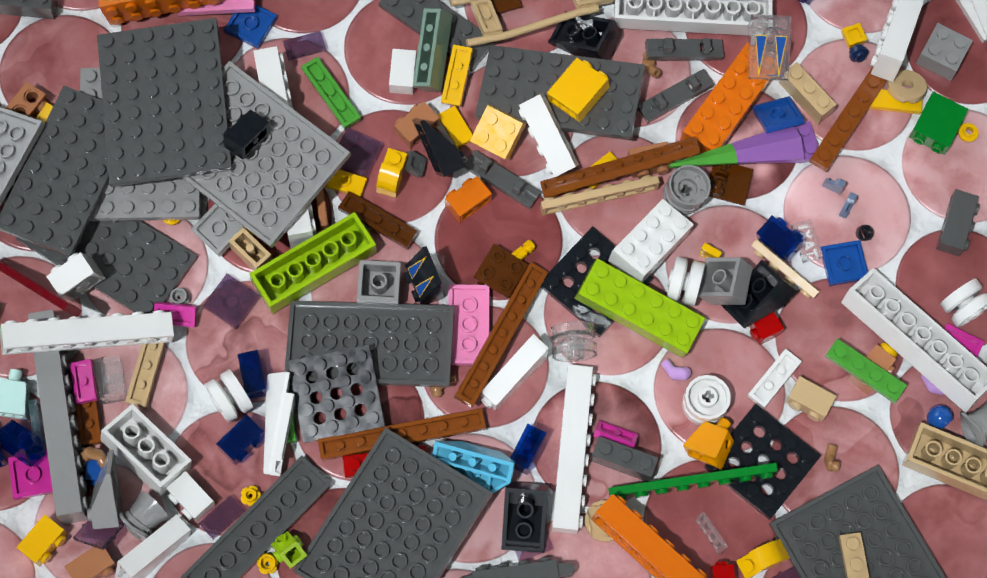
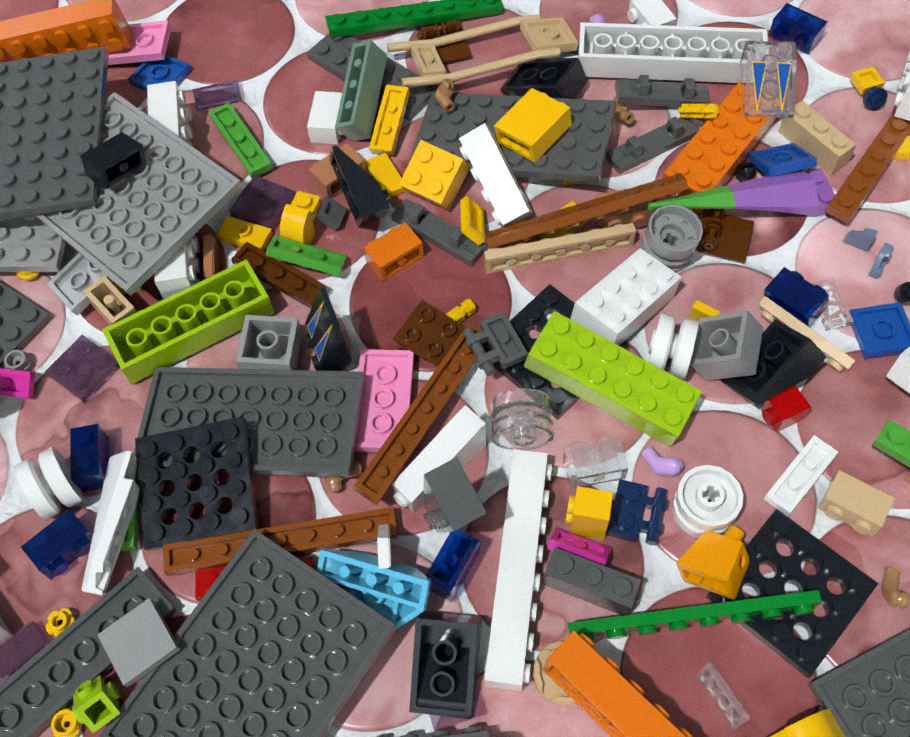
camera: 10 degrees right, 10 degrees down
(312, 508) = (138, 642): none -> light grey tile
(399, 204) = (306, 255): none -> bright green plate
(479, 438) = (384, 546): none -> white tile
(502, 52) = (444, 94): none -> medium nougat arm
(527, 408) = (450, 498): none -> dark grey wedge
(530, 172) = (472, 220): none -> yellow tile
(558, 278) = (503, 340): none -> dark grey plate
(622, 410) = (589, 512): none -> yellow brick
(627, 371) = (595, 462): none -> clear brick
(650, 407) = (628, 509): none -> dark blue plate
(712, 71) = (699, 111): none -> yellow axle
(751, 126) = (746, 171): none -> black hinge

